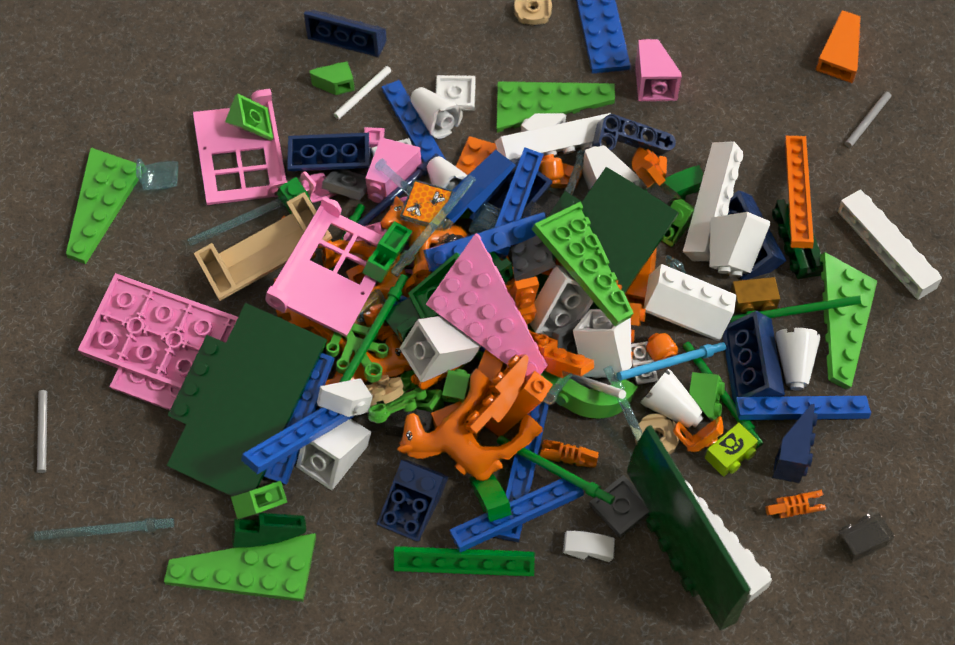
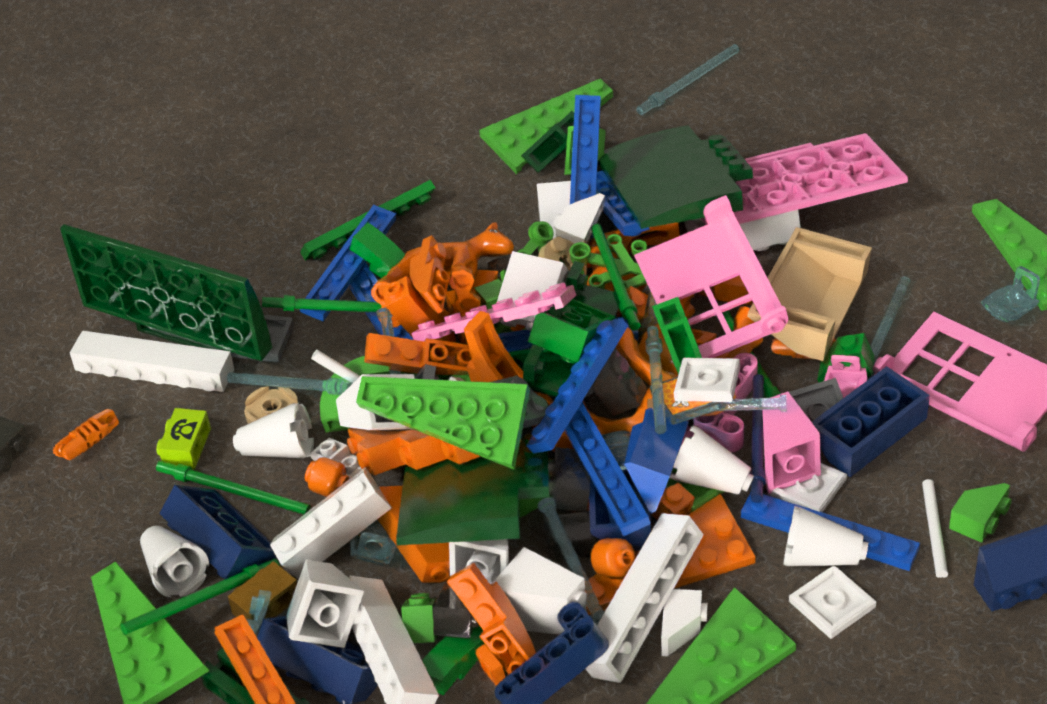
camera: 145 degrees right, 15 degrees down
(42, 431) = (824, 96): light grey bar -> none
(250, 117) = (996, 397): bright green slope -> none
(375, 135) = (859, 489): bright pink tile -> none
(409, 198) = (707, 379): none -> white tile
(412, 499) = (456, 225): dark blue slope -> none
(568, 454) = (345, 342): orange hinge -> none
(585, 544) = (273, 286): white slope -> none
(703, 438) = (218, 422): orange piece -> none
(704, 351) = (279, 505): dark azure bar -> none
(706, 392) = (245, 464): bright green slope -> none
(777, 265) = (259, 608): none -> clear light blue slope
(794, 406) = (125, 524): blue plate -> none
(794, 451) = (112, 462): dark blue slope -> none

